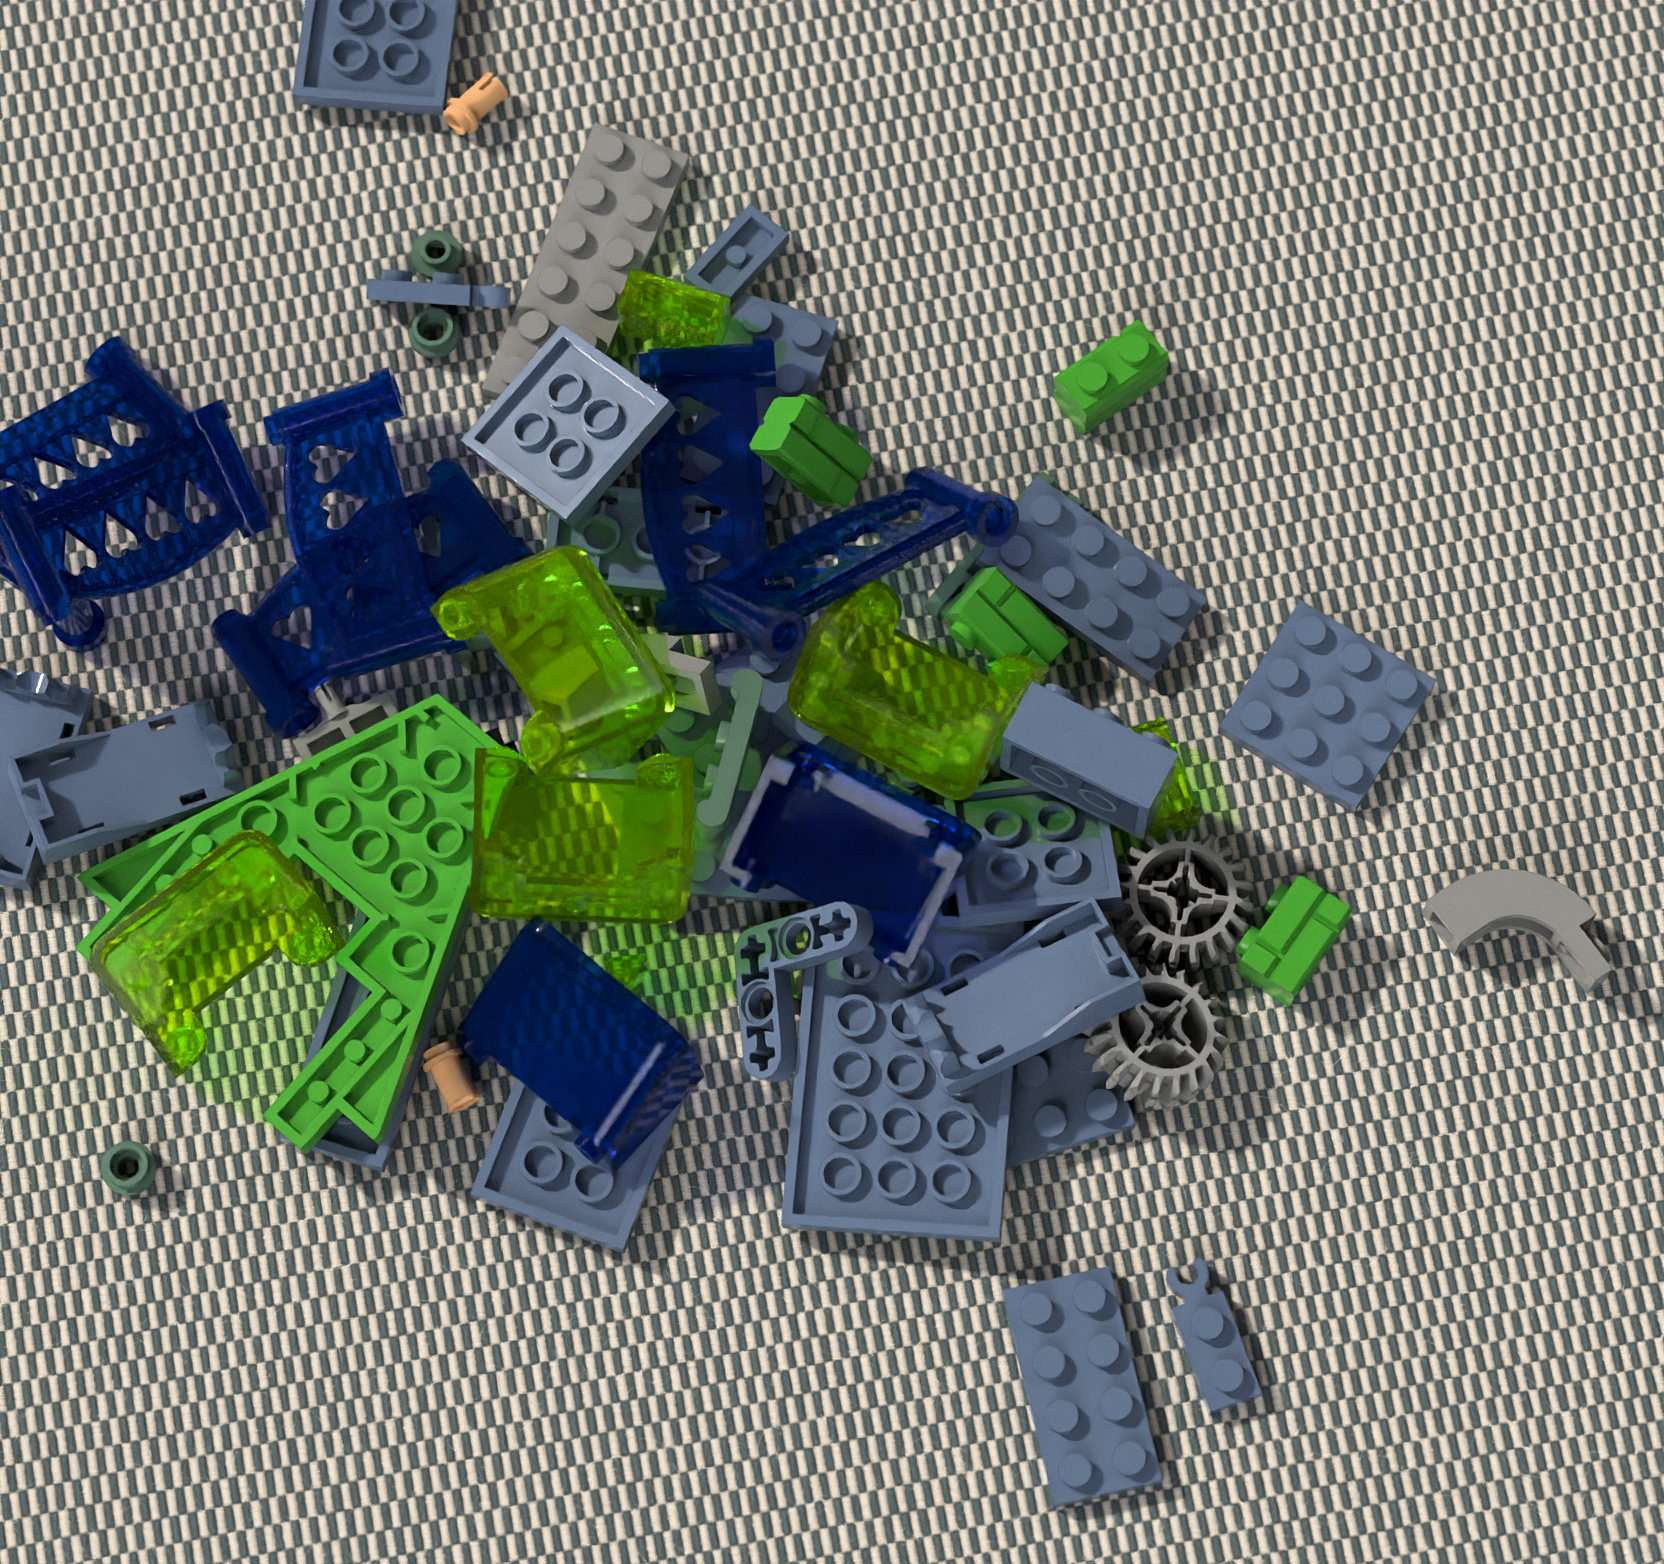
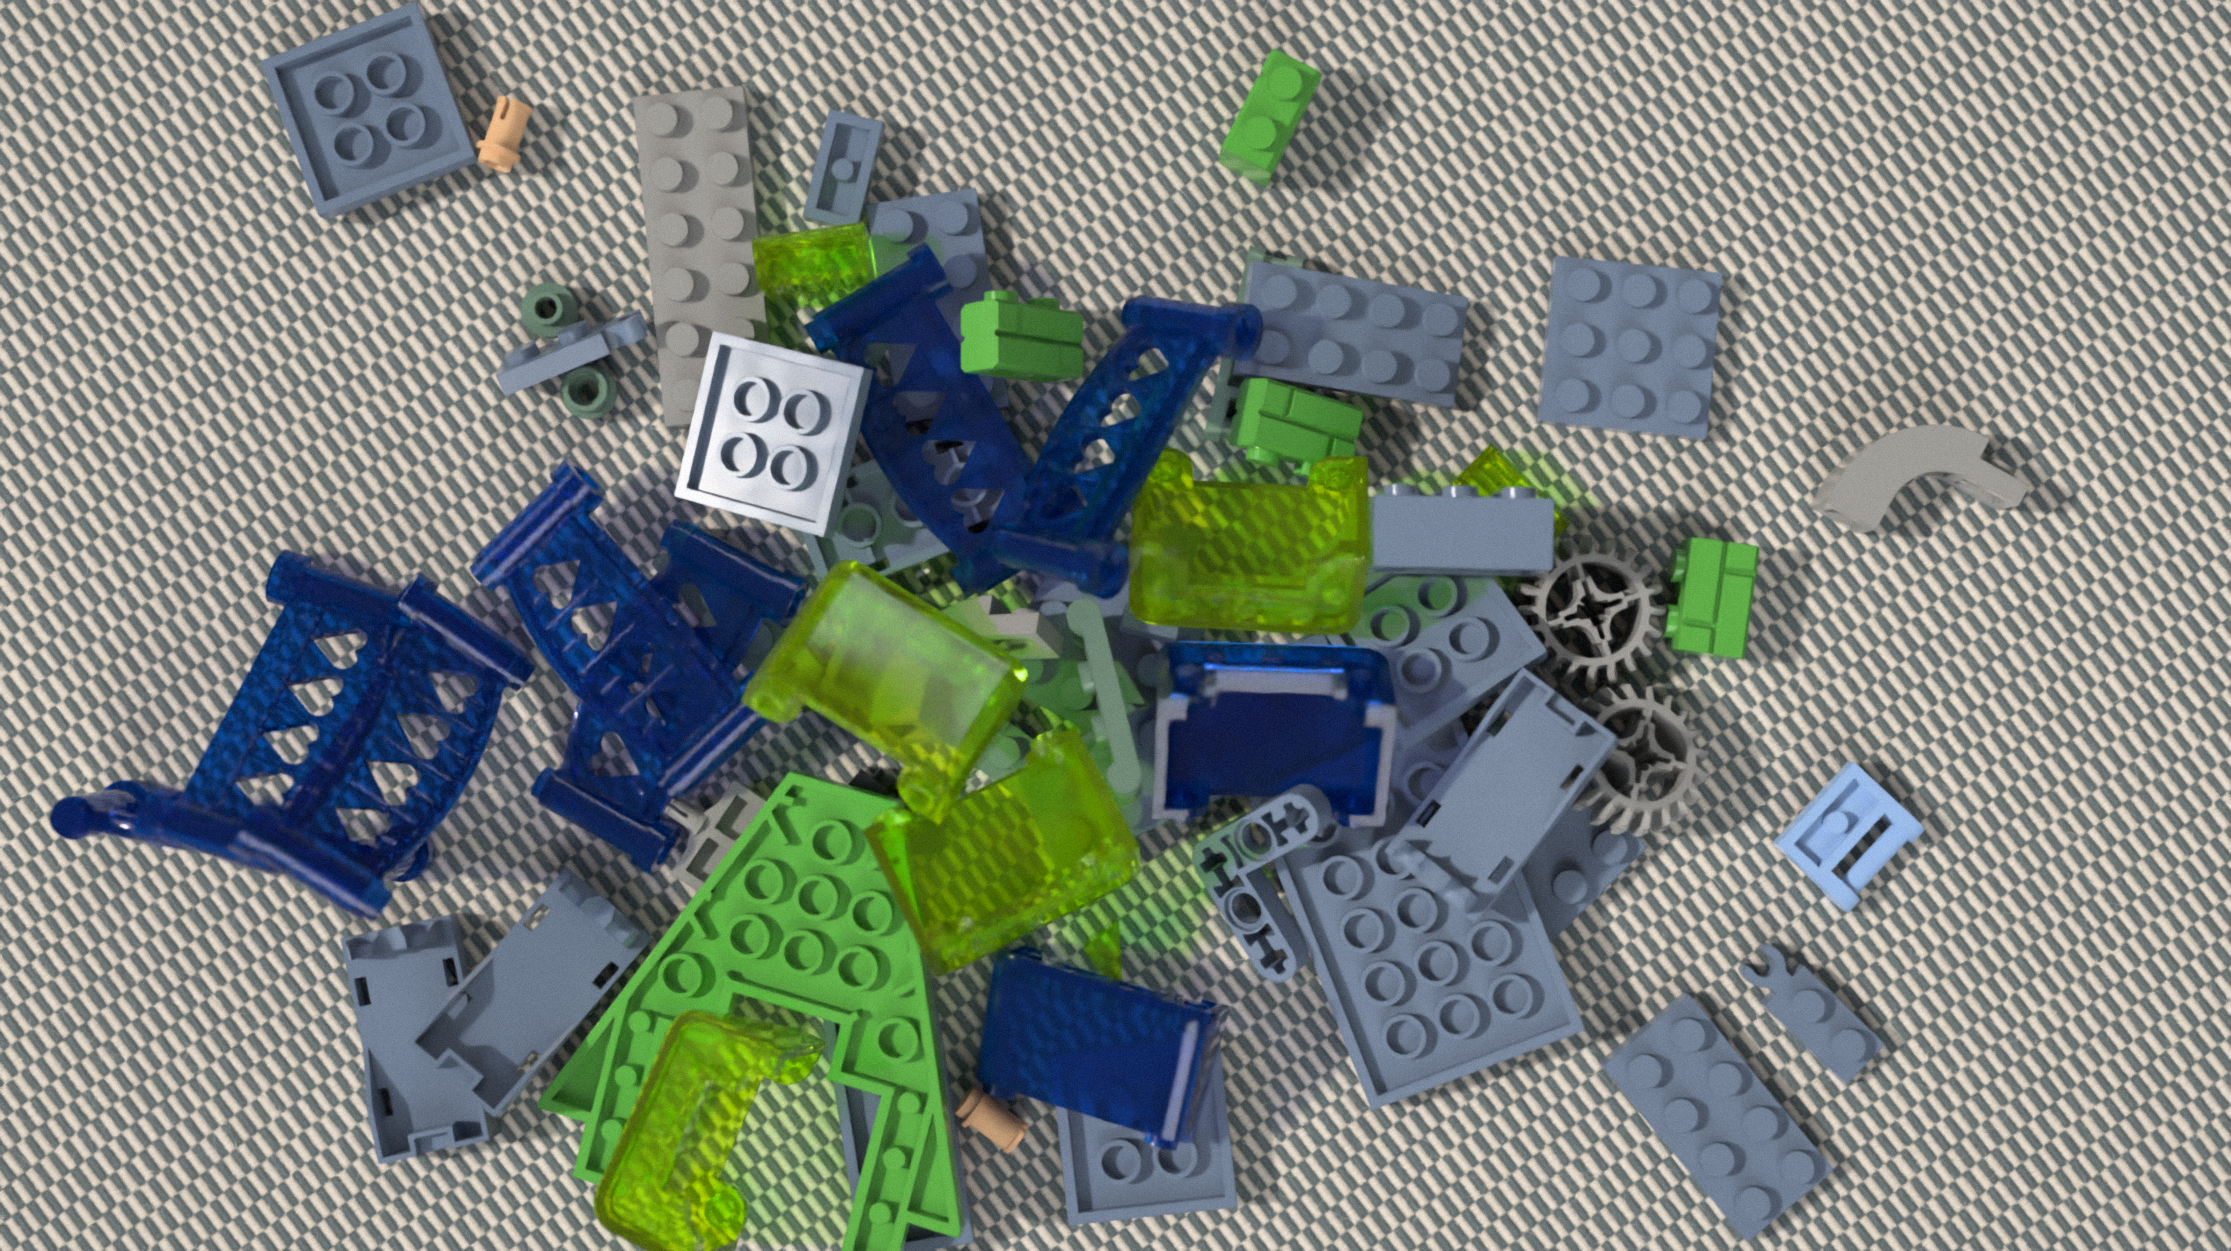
camera: 25 degrees left, 15 degrees up
(1311, 1182) = (1836, 823): none -> light blue plate

